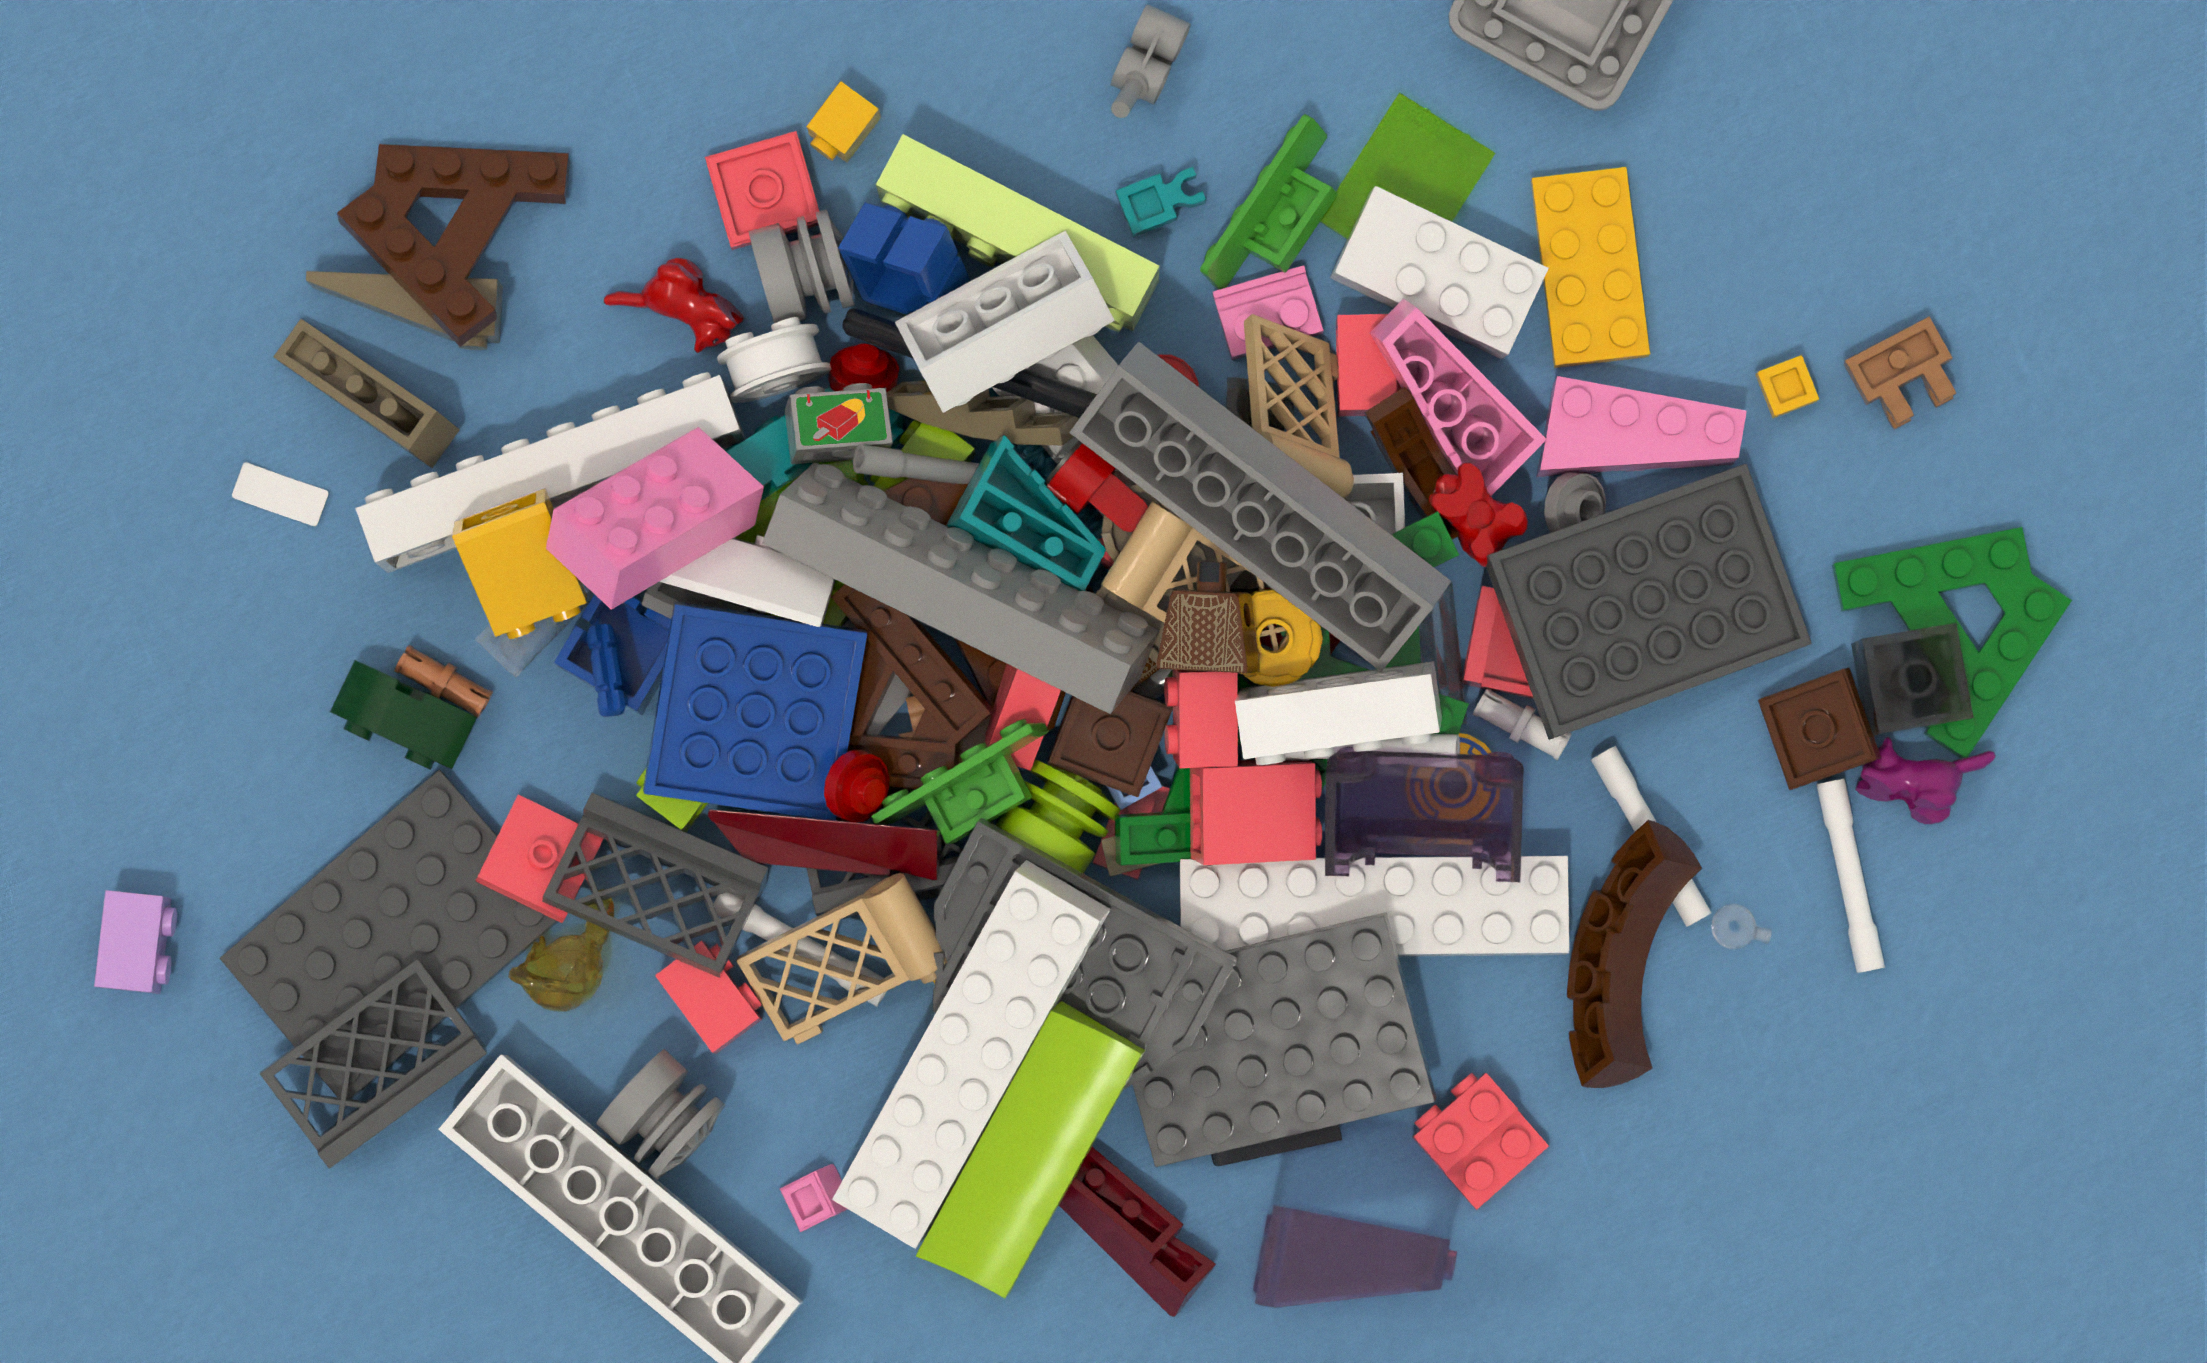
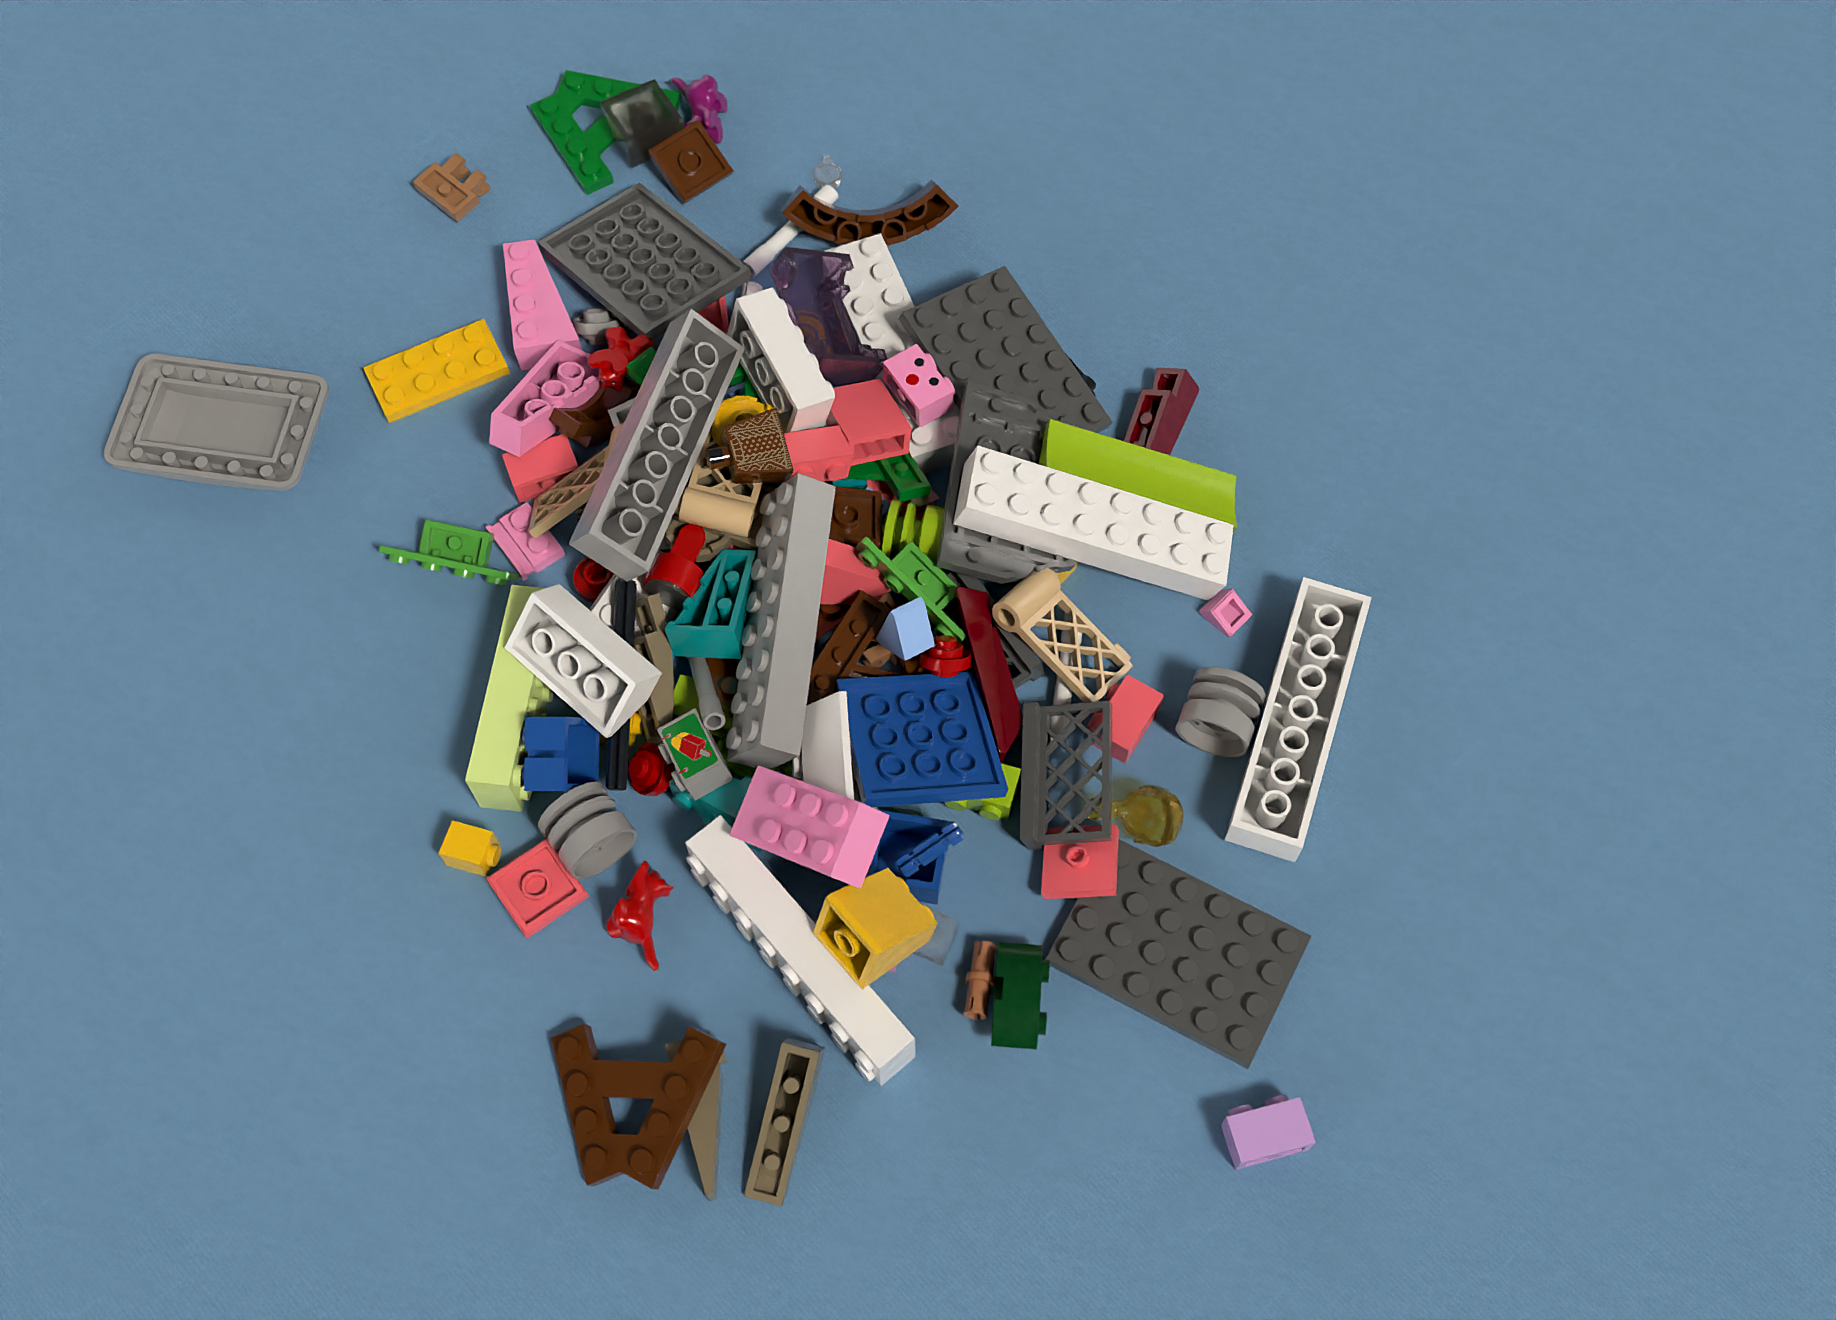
camera: 115 degrees left, 20 degrees down
(280, 494) = (886, 1160): white sticker -> none
(400, 1095) = (1287, 898): dark grey fence -> none
(773, 360) = (662, 823): white wheel -> none
(894, 743) = (907, 630): none -> light blue slope
(1148, 63) = (377, 670): light grey beam -> none
(1152, 204) = (468, 631): teal plate -> none
(1270, 902) = (918, 385): none -> bright pink brick
(1335, 1259) = (1128, 275): clear purple windscreen -> none
(1413, 159) = (411, 488): clear neon green piece -> none
(1444, 270) = (457, 459): white brick -> none
(1478, 1139) = (1020, 253): coral plate -> none
(1787, 386) = (481, 242): yellow plate -> none
(1839, 822) = (803, 113): white piece -> none

